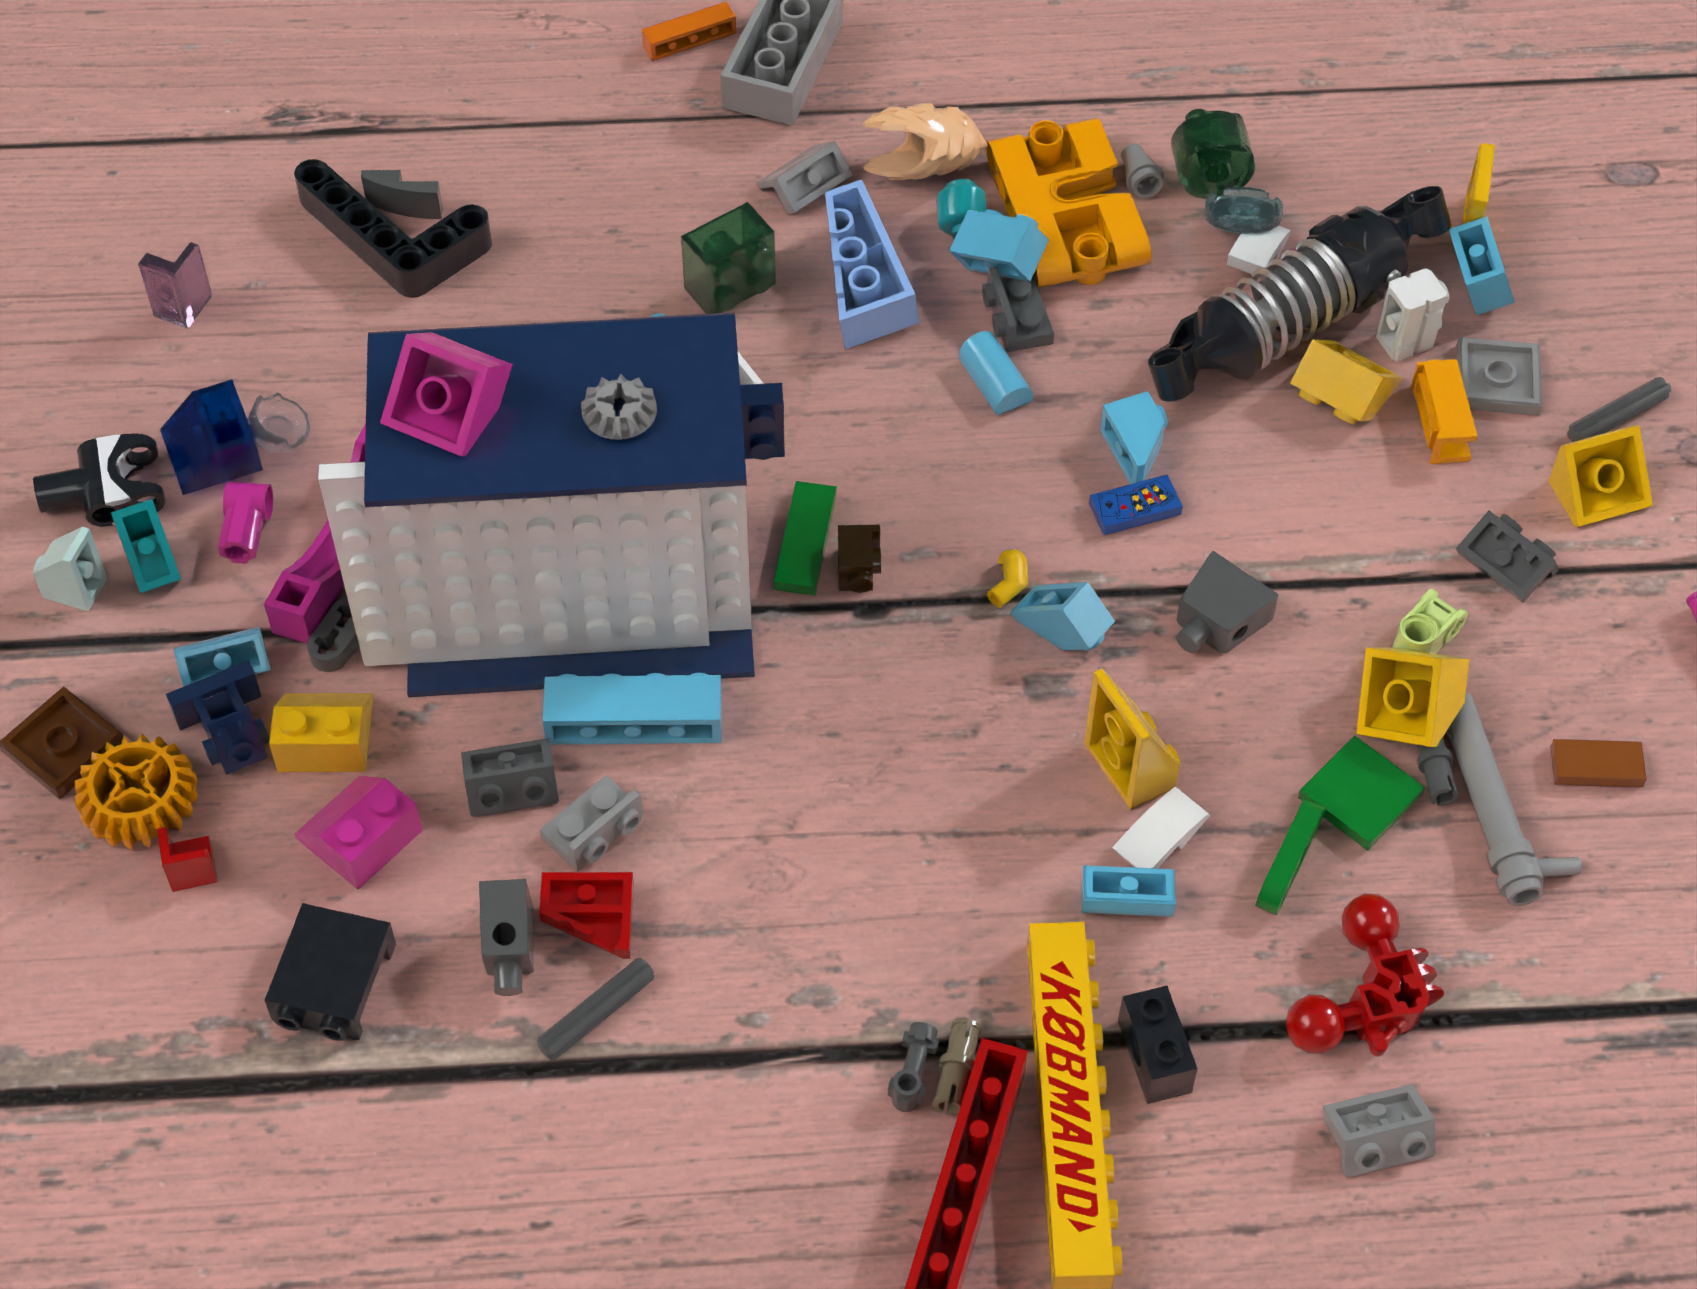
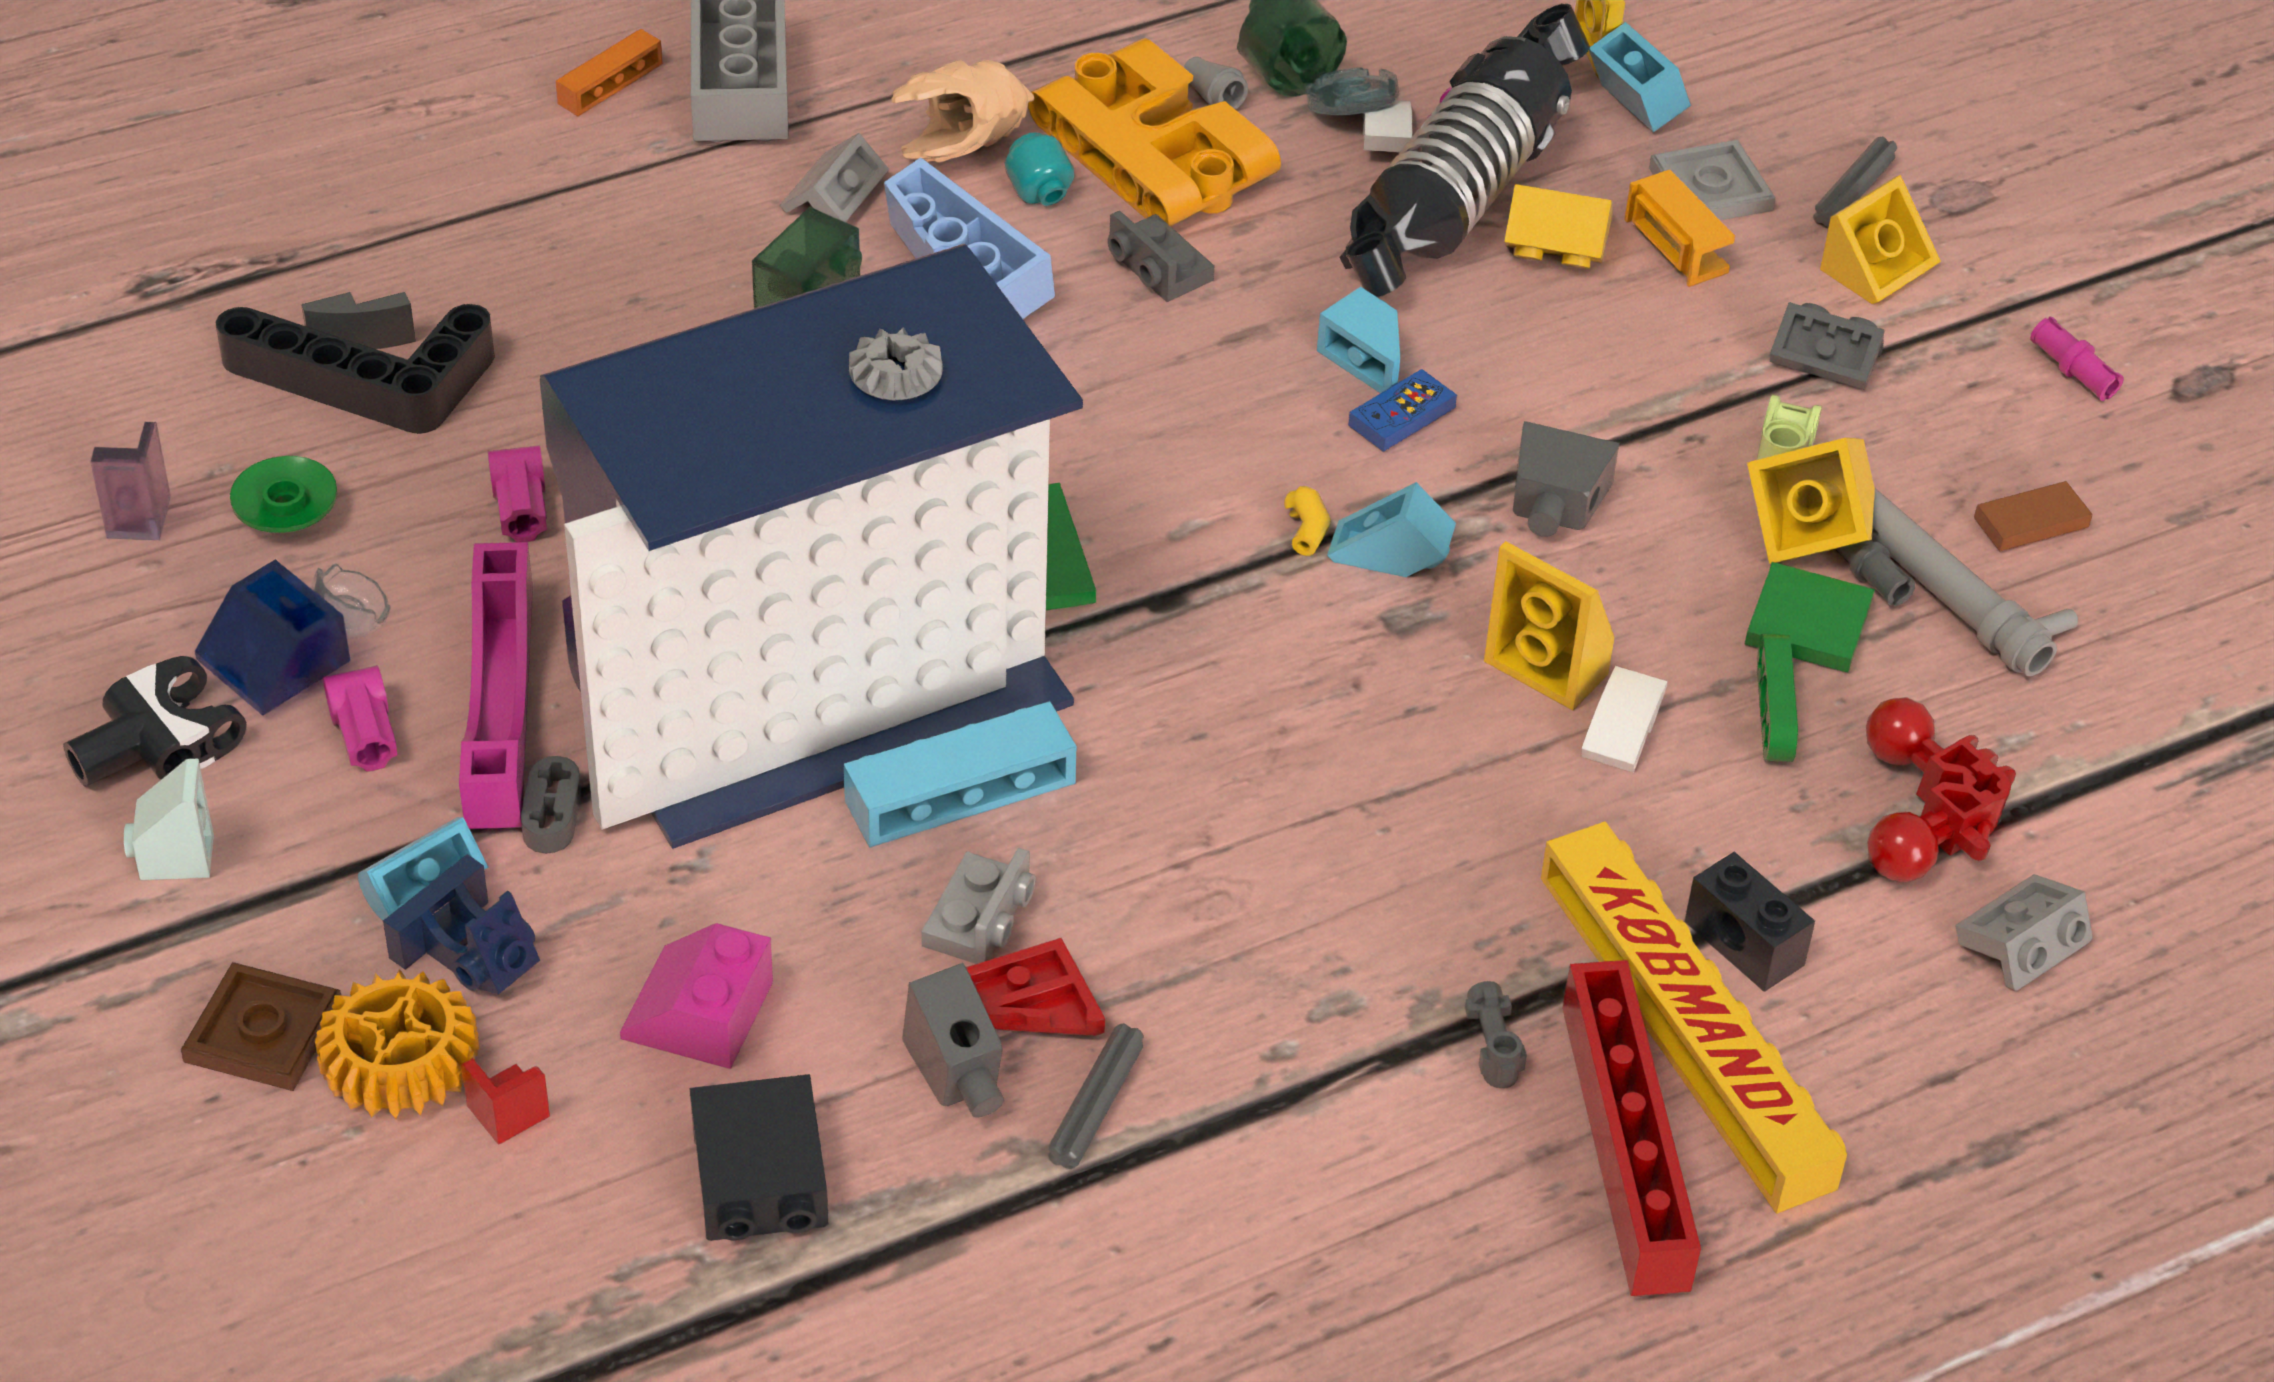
camera: 25 degrees left, 10 degrees down
(146, 546) = (253, 768): teal slope -> none
(279, 321) = (283, 494): none -> green dish
(321, 732) = (596, 913): yellow slope -> none
(444, 392) = (686, 400): dark pink slope -> none
(509, 777) = (854, 888): dark grey bracket -> none
(858, 557) = (1127, 545): dark brown brick -> none
(956, 1066) = (1543, 1017): dark tan pin -> none
(994, 373) = (1170, 322): medium azure brick -> none
(1000, 242) = (1108, 182): medium azure brick -> none
(1128, 891) = (1625, 785): medium azure brick -> none
(1412, 314) = (1597, 139): white brick -> none

